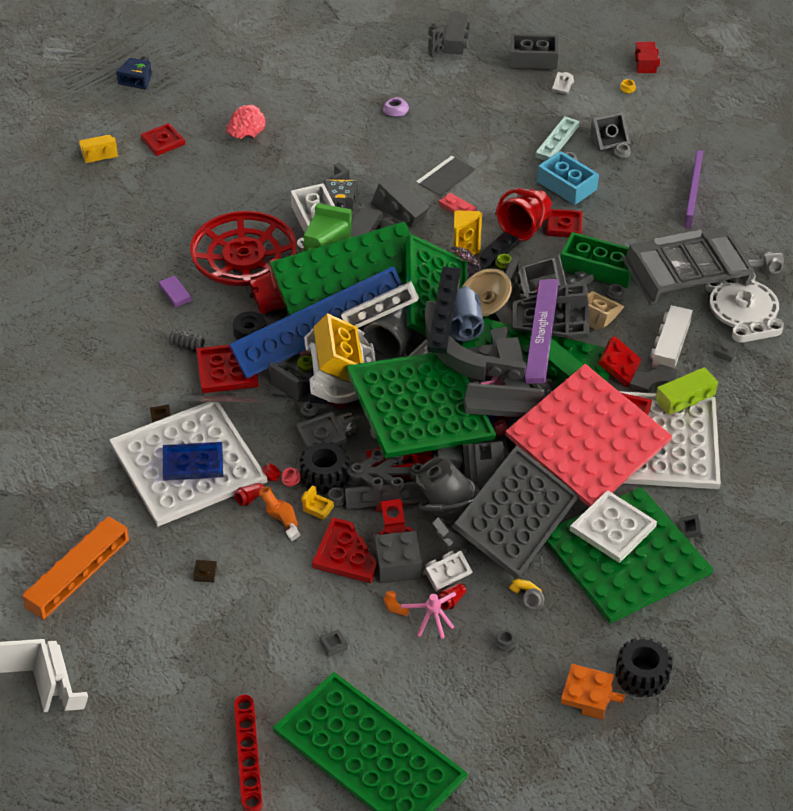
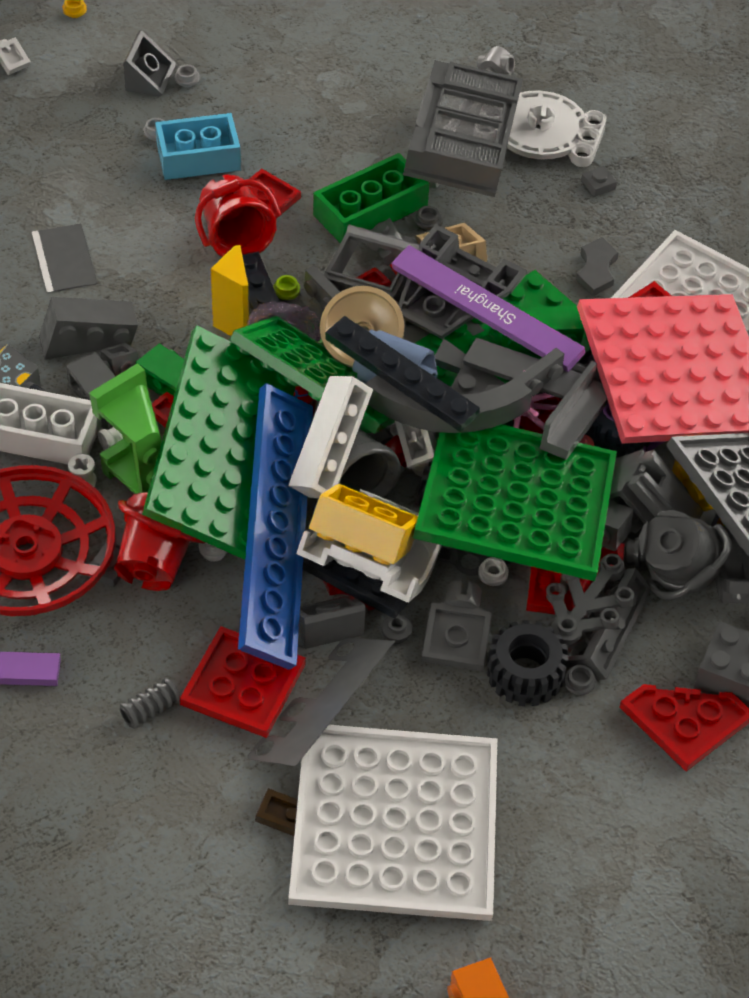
camera: 60 degrees left, 5 degrees up
(193, 461) = (417, 810): clear blue plate -> none
(205, 571) = (614, 901): dark brown plate -> none
(247, 319) = (180, 600): black tyre -> none
(247, 494) = (510, 779): red cone -> none
(271, 472) = (488, 728): red plate -> none
(280, 511) = (575, 751): orange arm -> none
(291, 477) = (511, 712): coral plate -> none
(305, 364) = (310, 592): lime plate -> none
(316, 504) = (584, 707): yellow bracket -> none
(395, 524) = (686, 644): red piece -> none
(452, 203) = (139, 277): coral plate -> none
(557, 138) = (109, 118): light aqua plate -> none
(619, 361) = (557, 275): red plate -> none
(671, 337) = (550, 212): white brick -> none
(686, 390) = (660, 245): lime brick -> none
(693, 191) = (316, 55): medium lavender tile -> none

